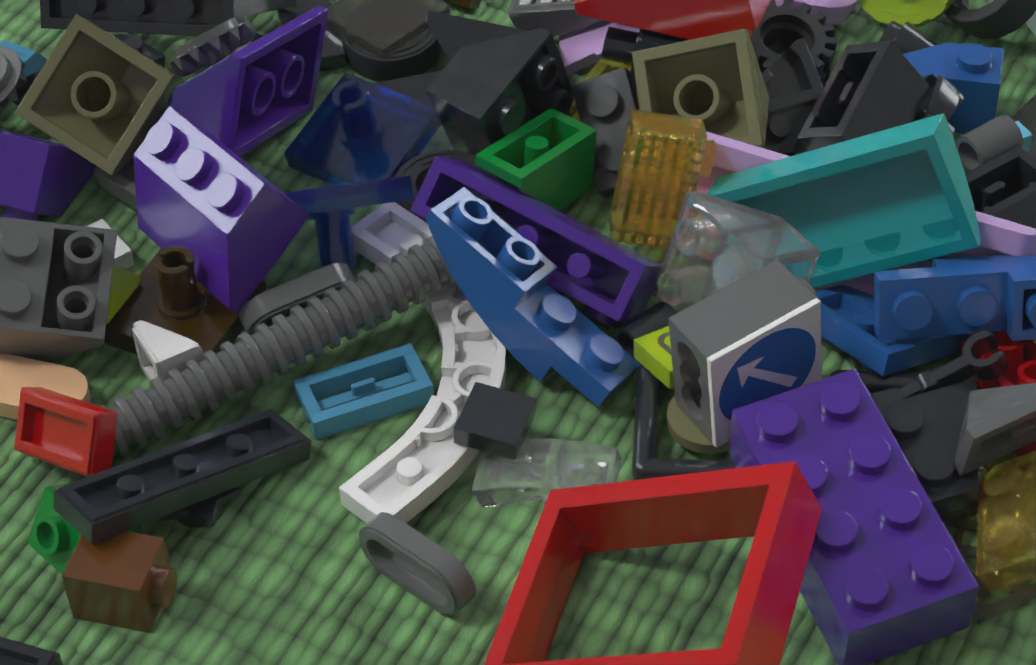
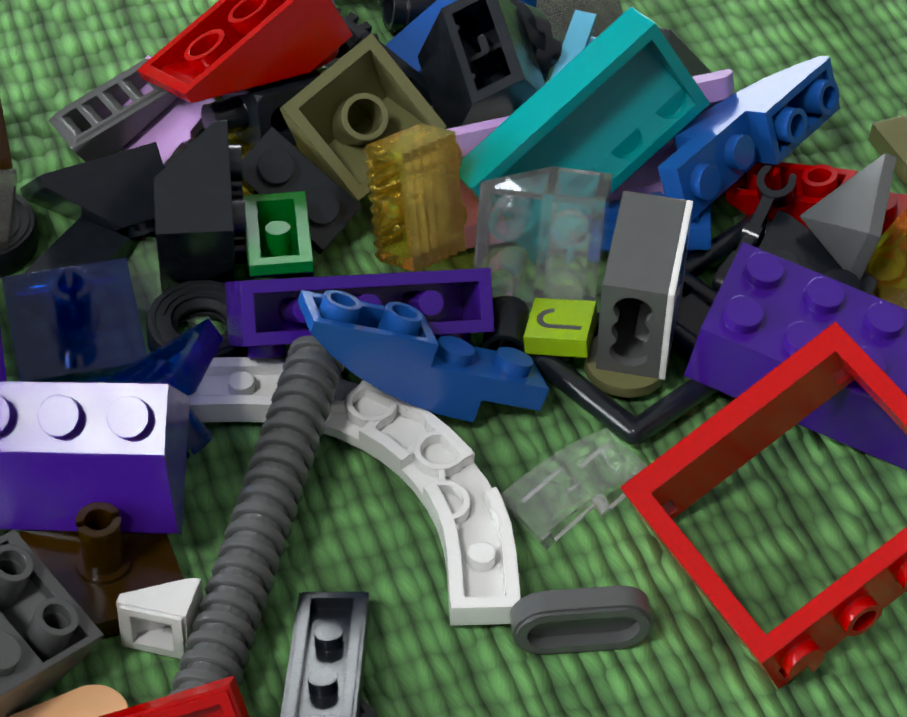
camera: 50 degrees left, 0 degrees up
(292, 293) = (211, 491): dark grey tile -> none
(367, 399) = (329, 567): dark azure tile -> none
(495, 420) = (507, 467): black tile -> none
(988, 141) = (588, 25): dark grey hinge -> none

